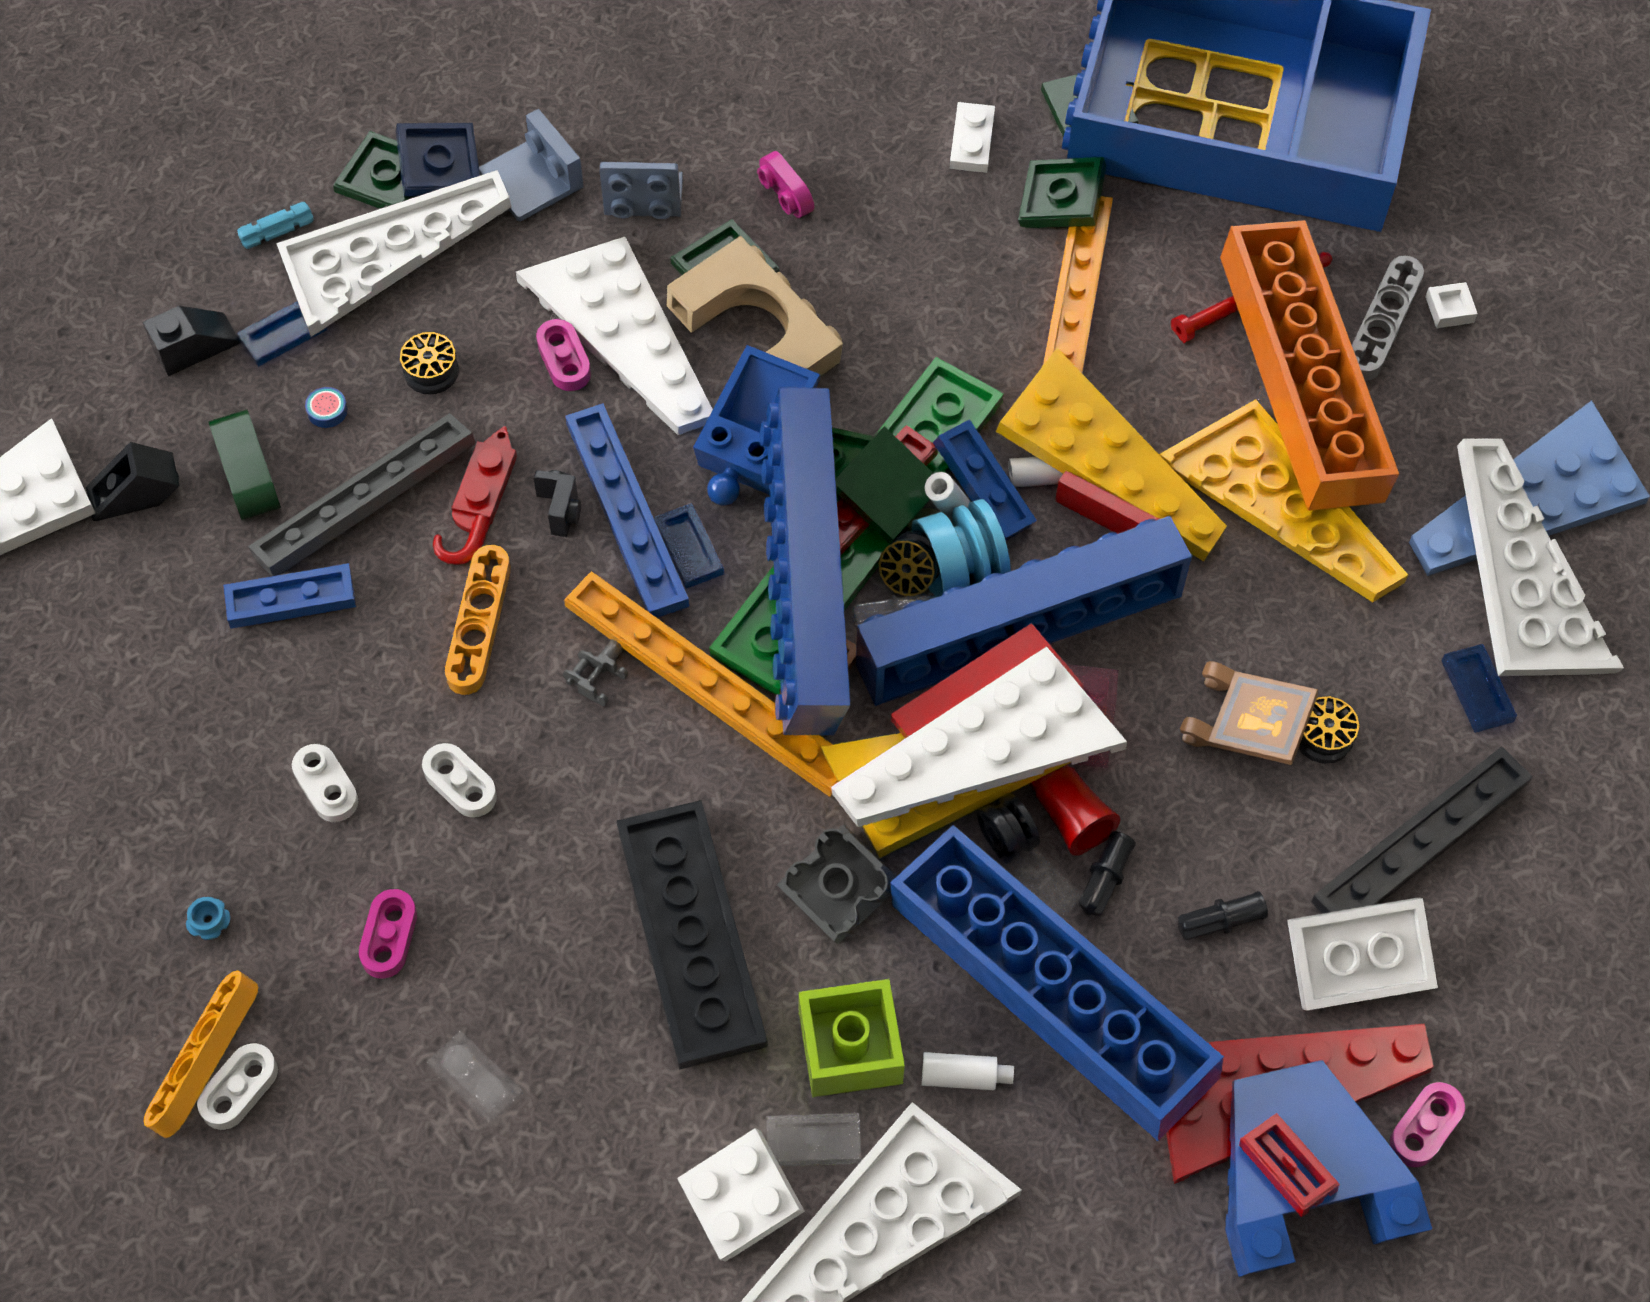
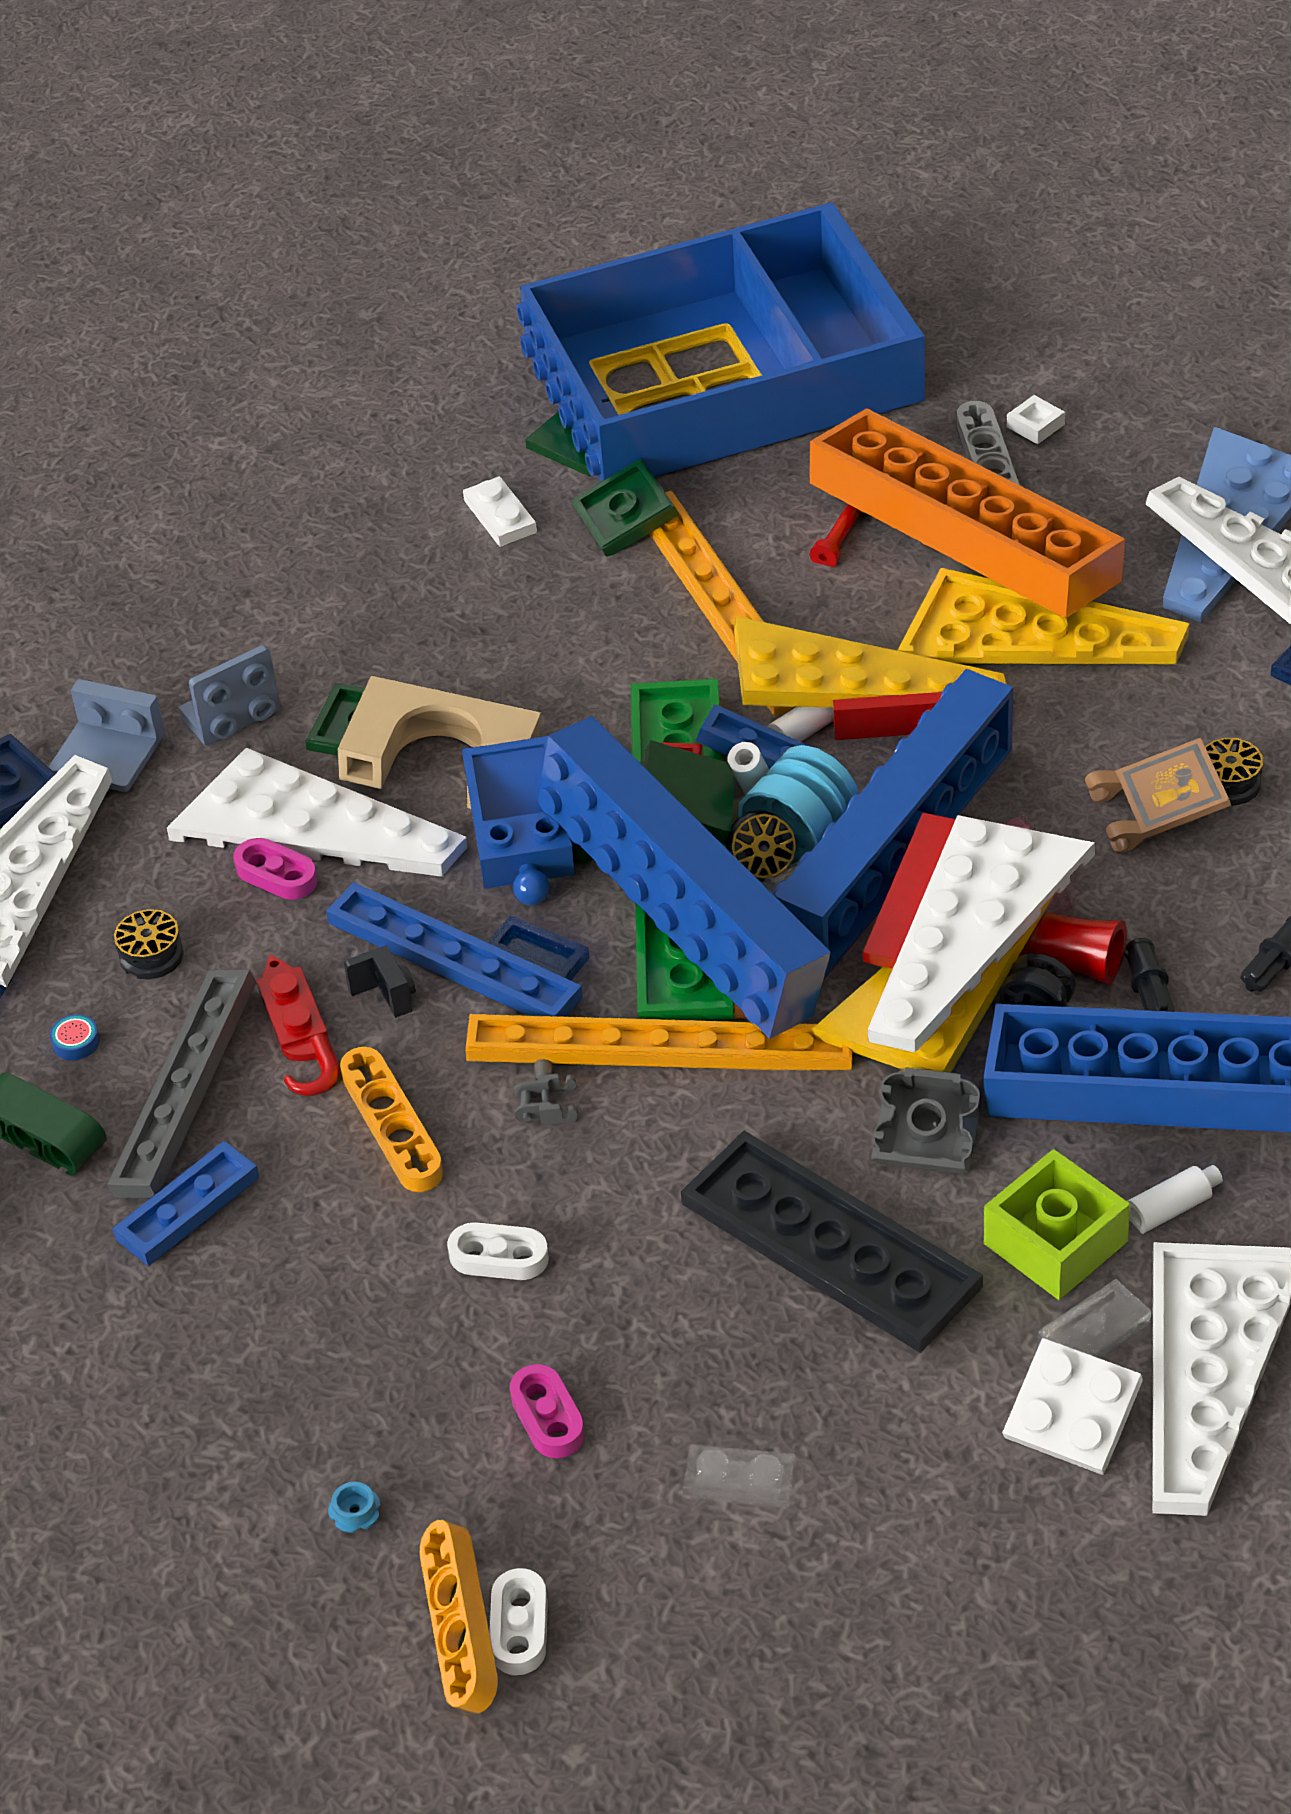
camera: 30 degrees left, 15 degrees down
(323, 780) = (363, 1333): white plate -> none
(790, 188) = (364, 628): dark pink plate -> none

